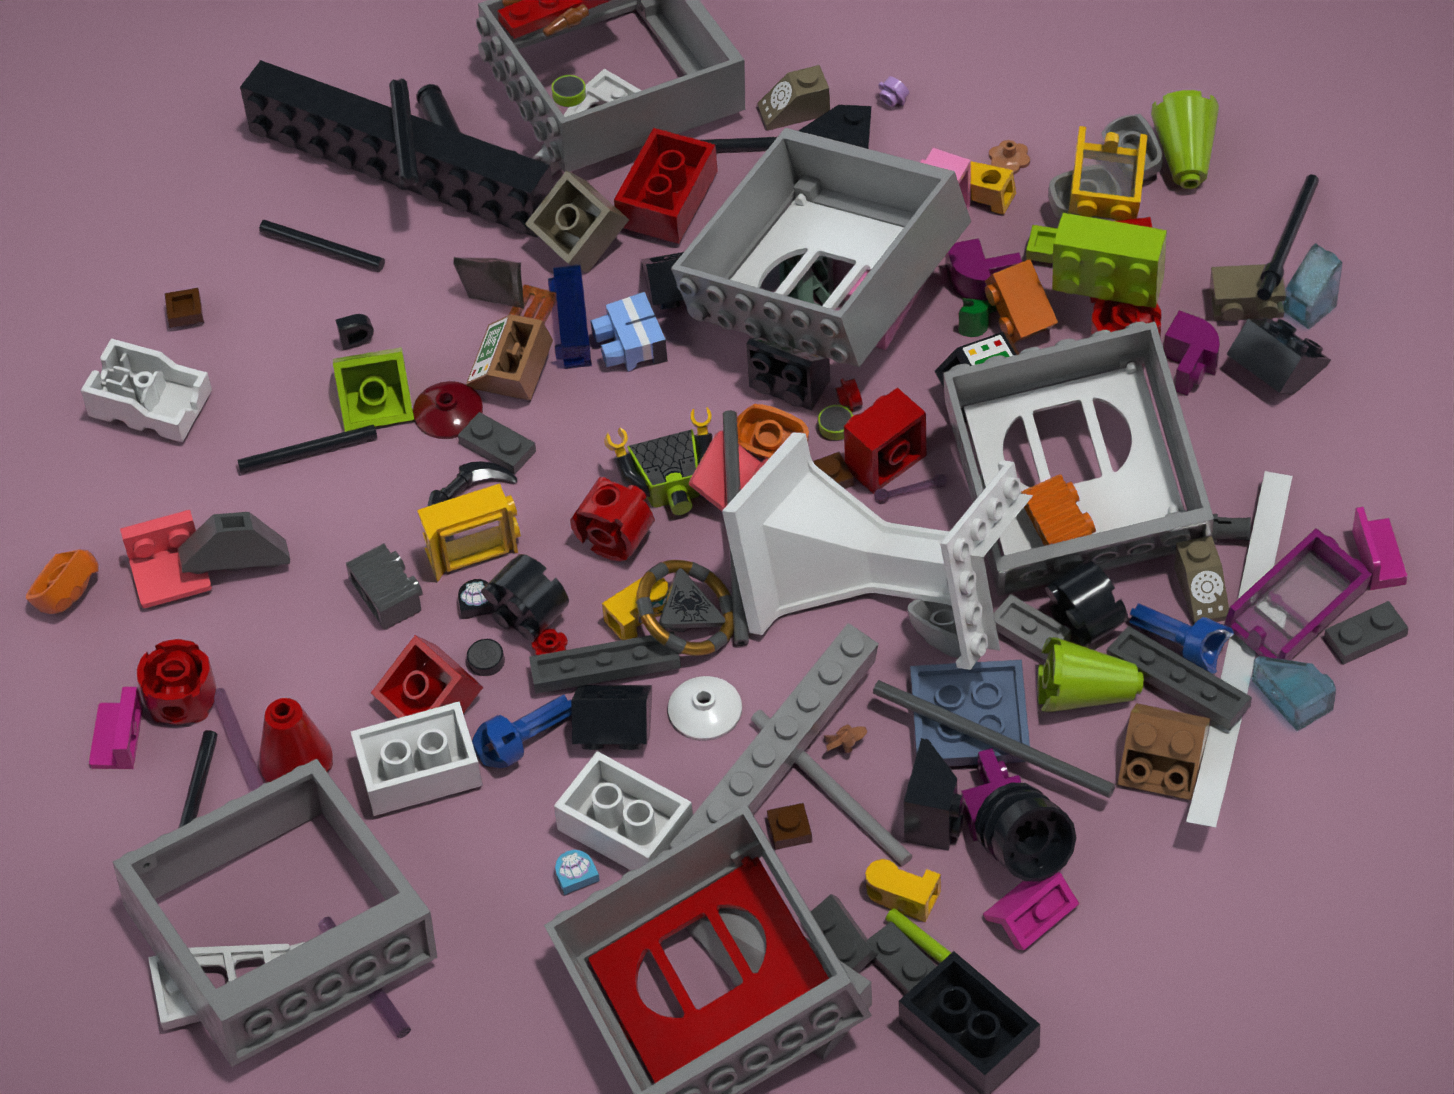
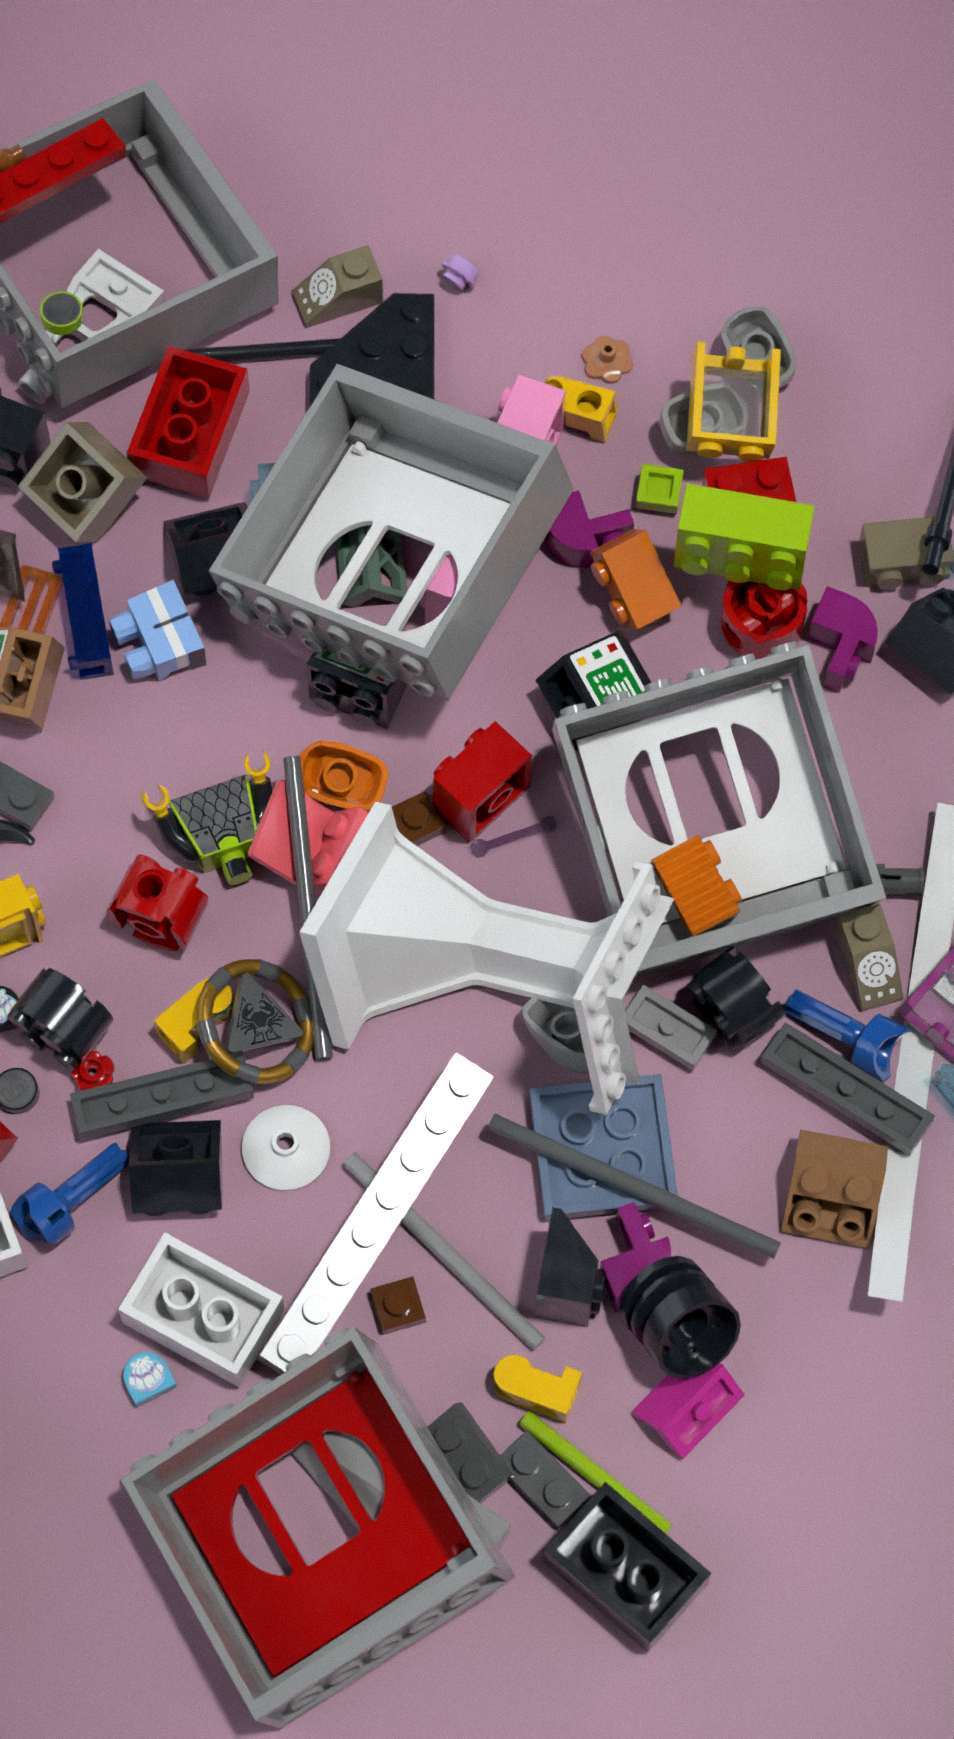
camera: 10 degrees left, 15 degrees up
(567, 20) = (51, 203): dark orange piece -> none
(832, 421) = (418, 747): tile -> none
(846, 736) = (457, 1184): nougat plant -> none
(849, 394) = (432, 711): red plate -> none
(974, 317) = (577, 594): green piece -> none
(1083, 677) = (735, 1098): lime cone -> none
(1186, 134) = (824, 334): lime cone -> none

